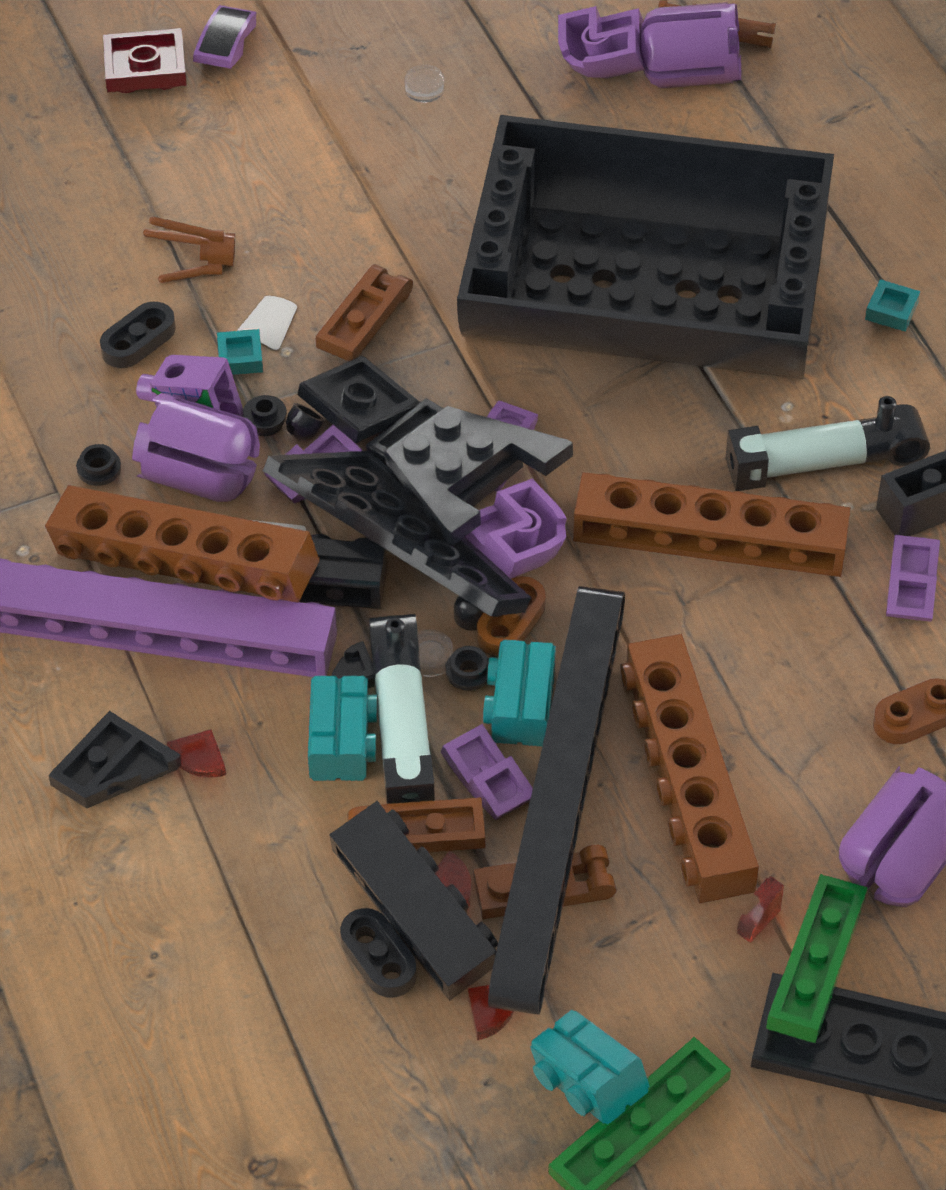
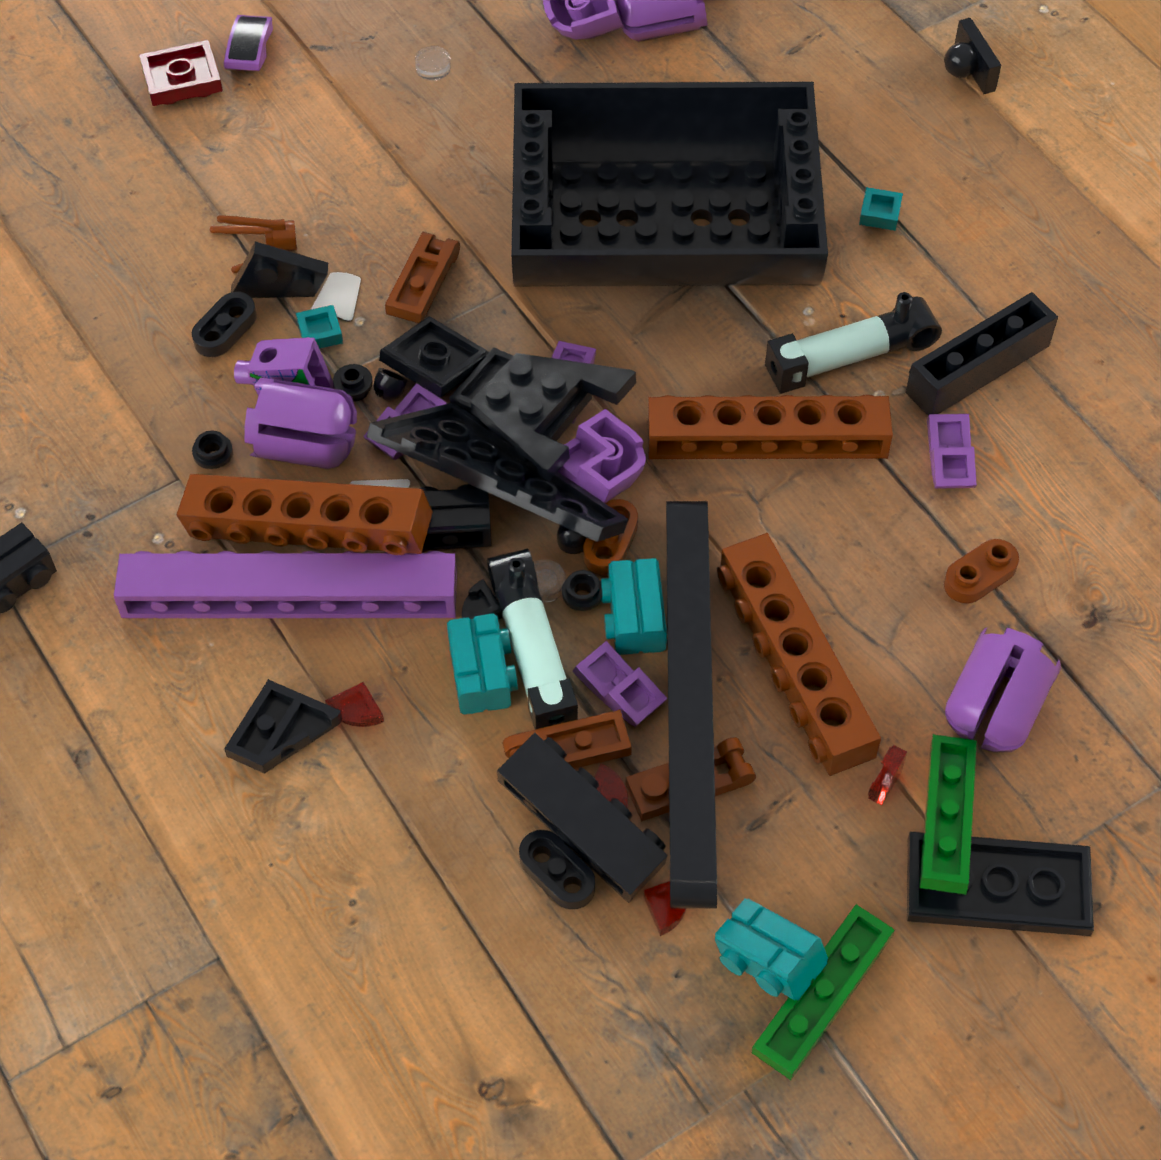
camera: 10 degrees left, 5 degrees up
(207, 288) = (279, 273): none -> black wing

